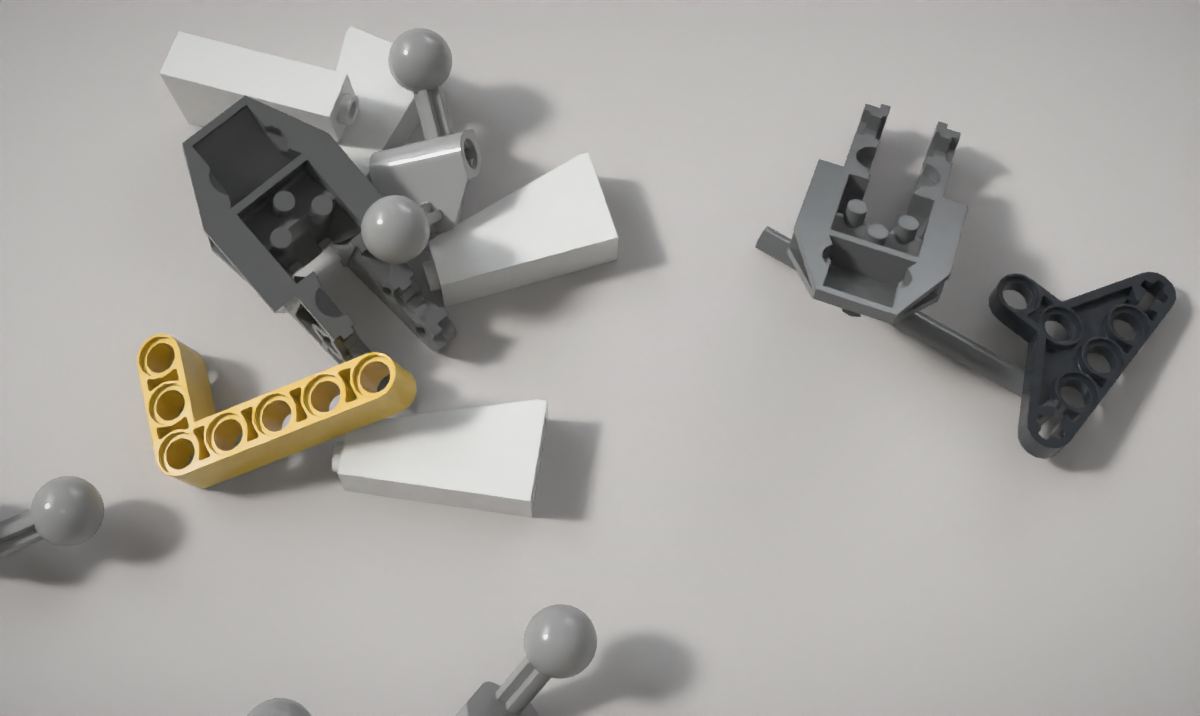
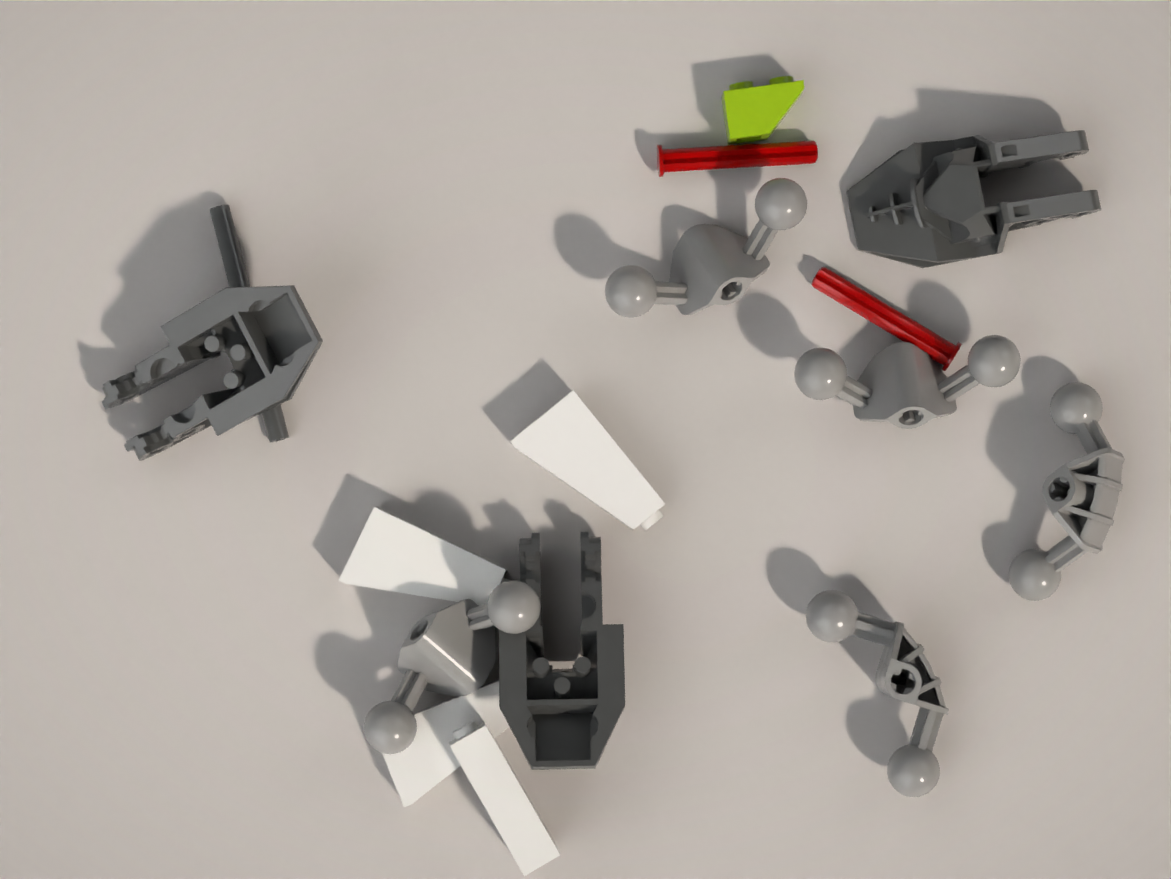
camera: 135 degrees left, 20 degrees up
(259, 419) = (684, 573): yellow beam -> none
(1065, 363) = (150, 203): black beam -> none

